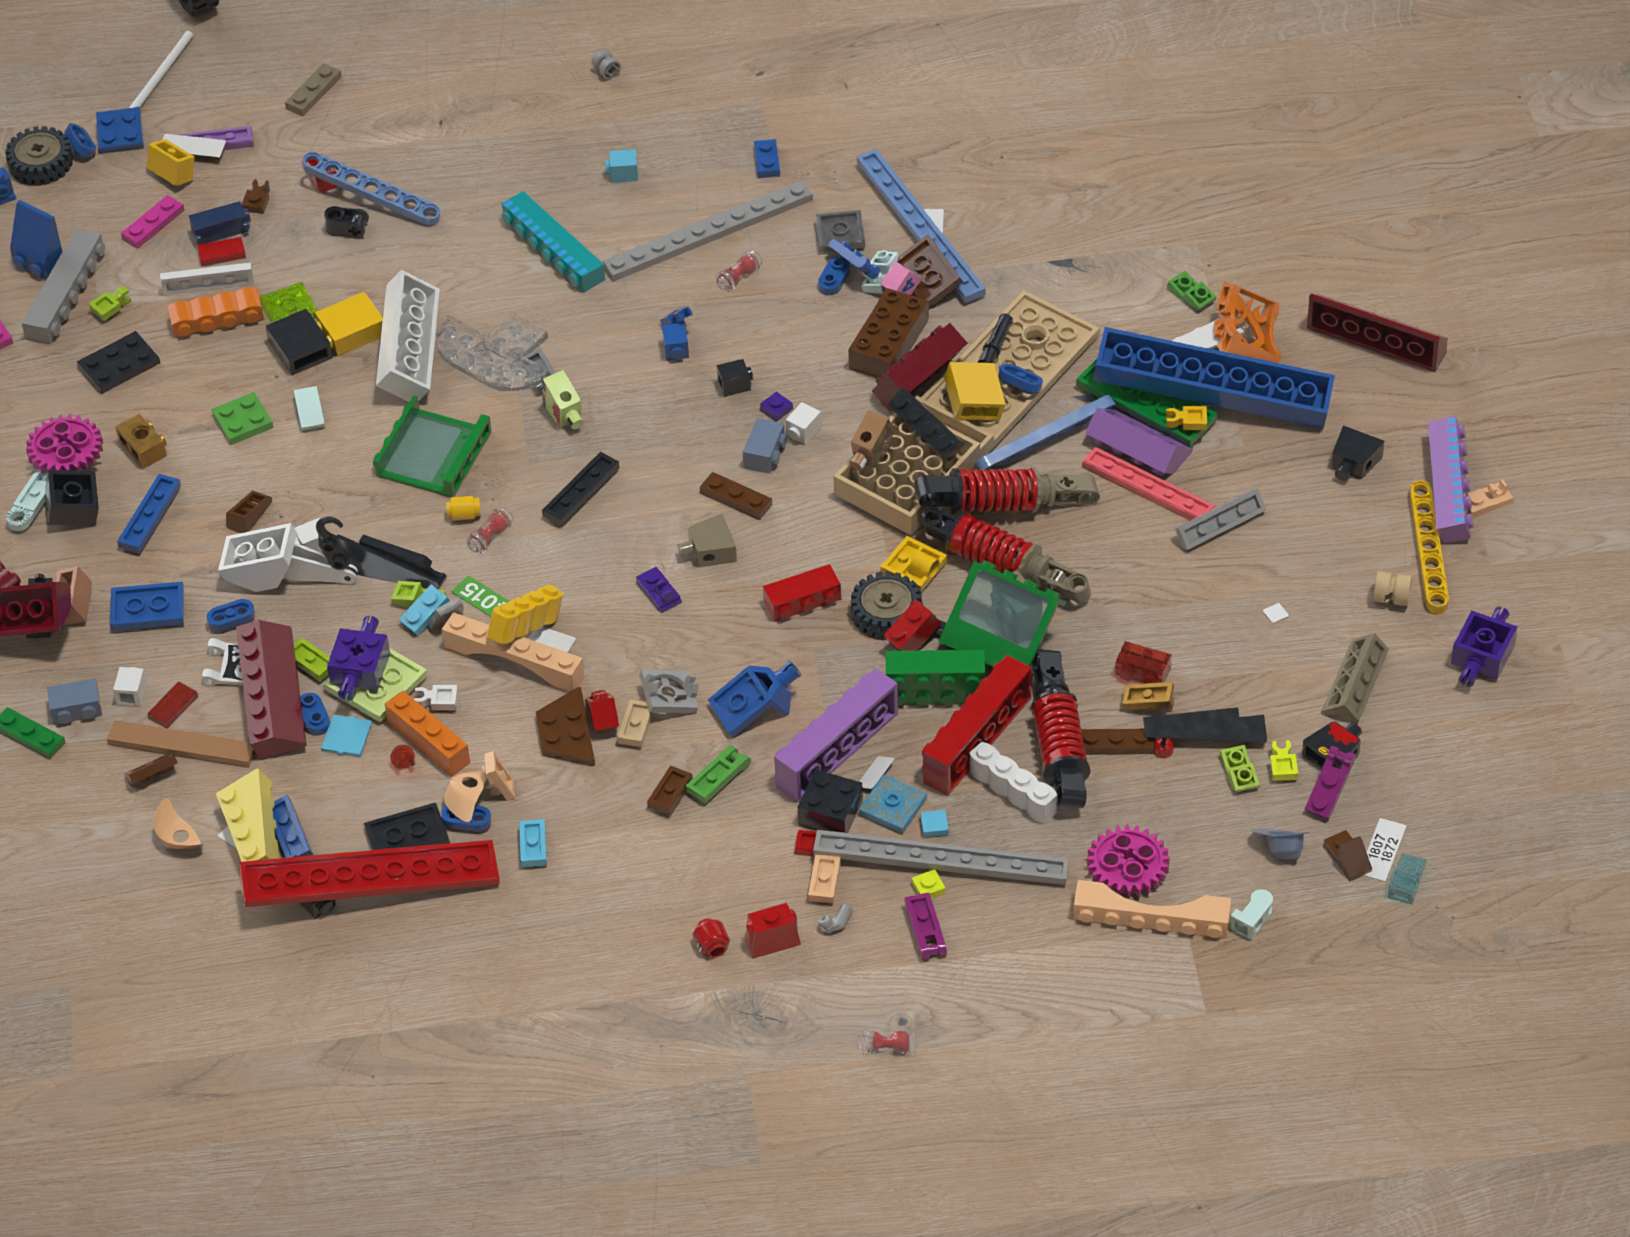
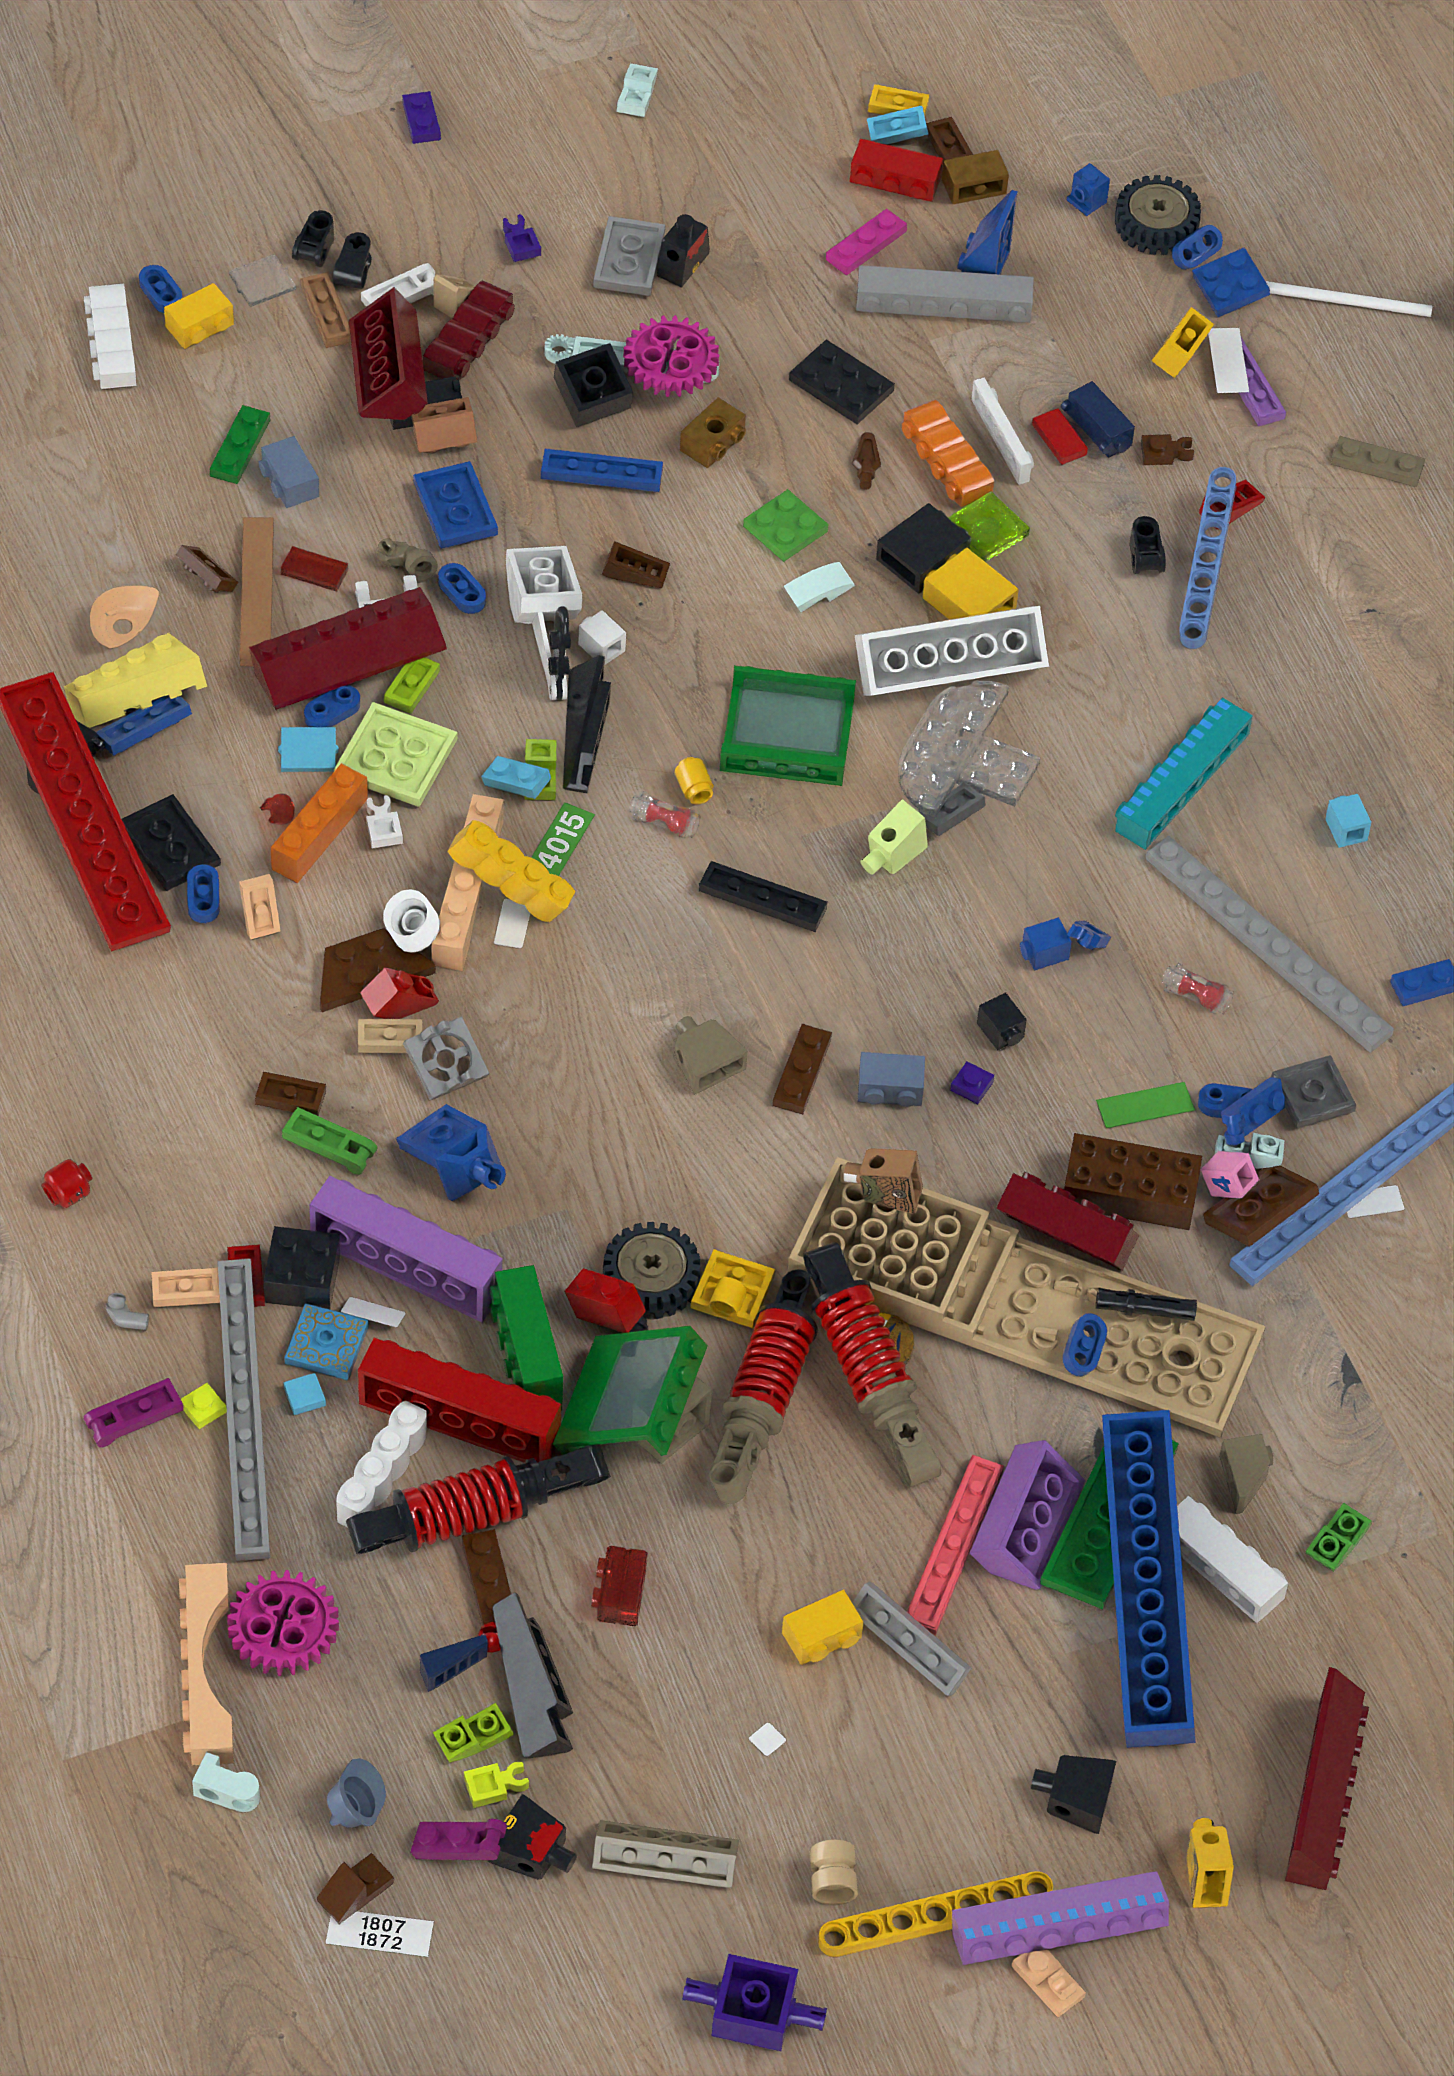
camera: 70 degrees right, 5 degrees up
(108, 305) = (930, 344): lime plate -> none
(130, 686) = (326, 518): white brick -> none
(152, 221) = (1088, 356): dark pink plate -> none
(181, 648) = (416, 560): none -> dark tan arm
(199, 361) = (866, 460): none -> reddish brown piece
(358, 659) = (404, 721): dark purple brick -> none
(444, 612) = (511, 798): light grey piece -> none
(462, 799) = (218, 876): light nougat piece -> none
(533, 843) = (177, 969): medium azure plate -> none
(543, 686) = (411, 920): none -> white piece
(658, 589) = (620, 1017): dark purple plate -> none
(771, 930) = (84, 1243): red torso -> none
(802, 592) = (647, 1171): red brick -> none
(803, 423) = (942, 1115): white brick -> none
(820, 321) = (1145, 1105): none -> bright green sticker
(925, 424) = (948, 1239): black plate -> none
(974, 391) = (1038, 1291): yellow brick -> none
(1043, 435) = (1002, 1398): medium blue beam -> none
(1134, 320) = (1245, 1467): none -> dark tan slope
(1148, 696) = (565, 1600): pearl gold plate -> none
(1184, 773) = (449, 1661): none -> dark blue slope
(1191, 417) = (1073, 1566): yellow plate -> none
(1202, 562) = (822, 1627): none -> yellow brick
(1262, 326) = (1293, 1573): orange fence -> none
(1406, 878) = (329, 1967): clear light blue plate -> none
(1424, 396) = (1209, 1851): none -> yellow torso

